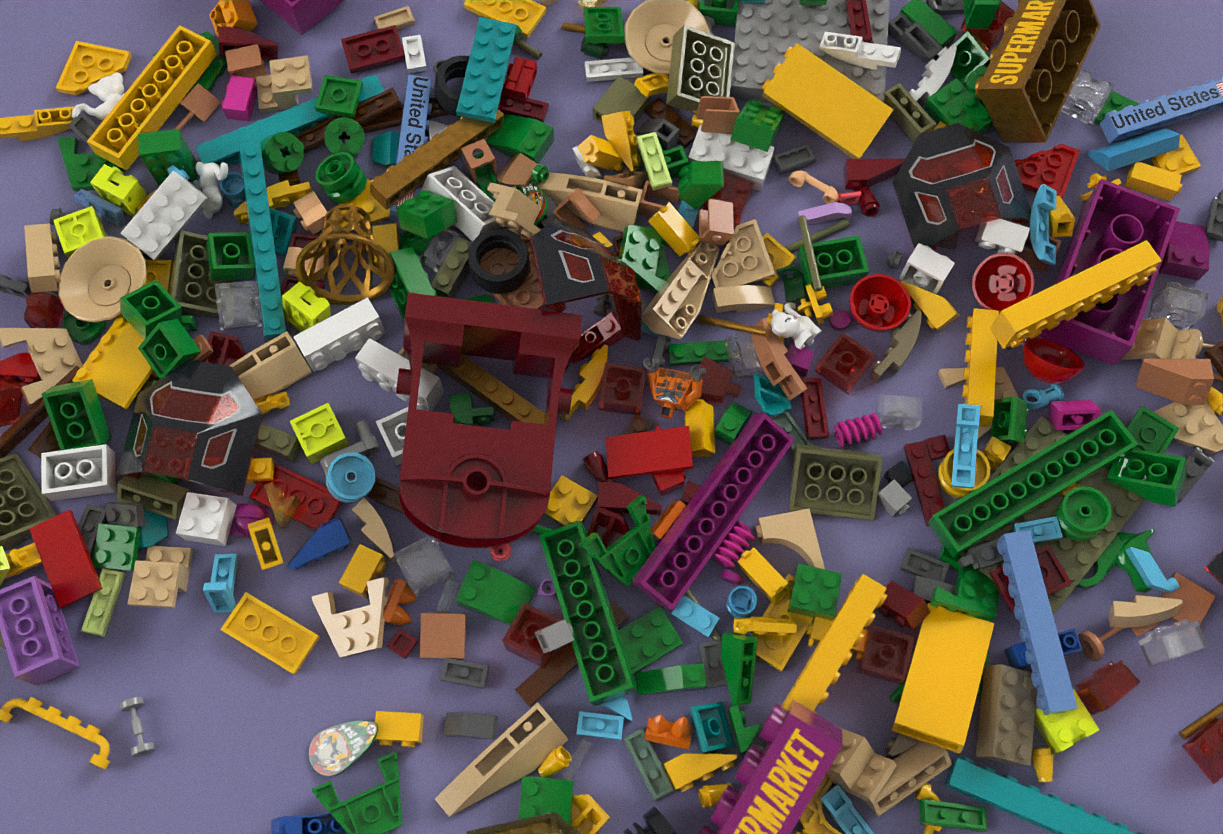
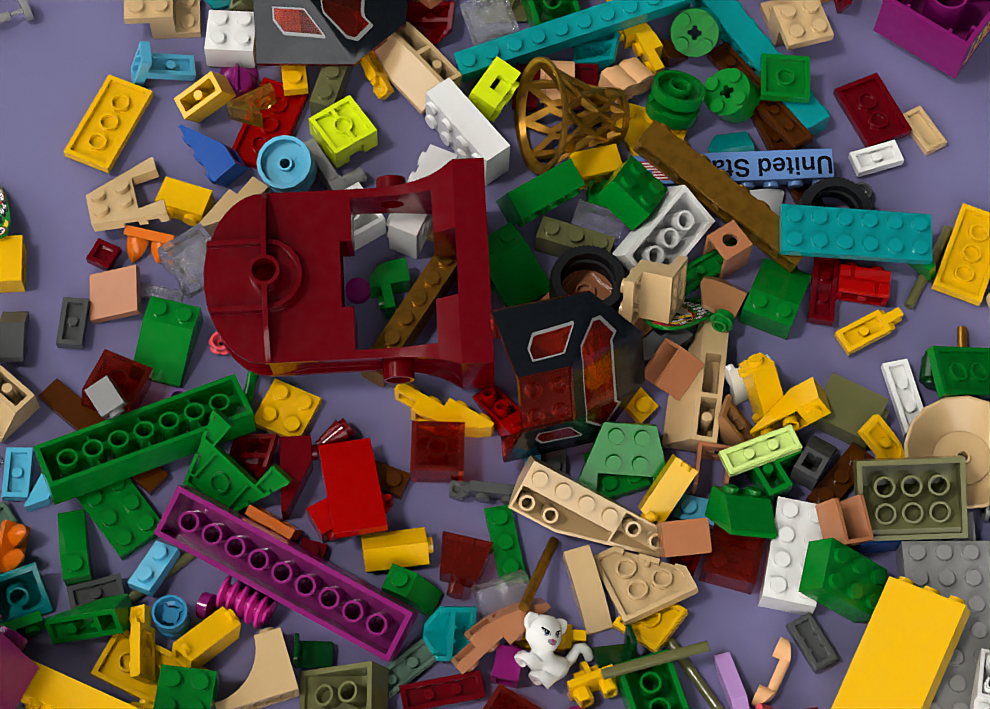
camera: 80 degrees right, 5 degrees down
(557, 83) = (868, 329): none -> yellow hinge
(673, 388) = (441, 505): torso -> none
(776, 499) = (312, 653): none -> dark green bracket

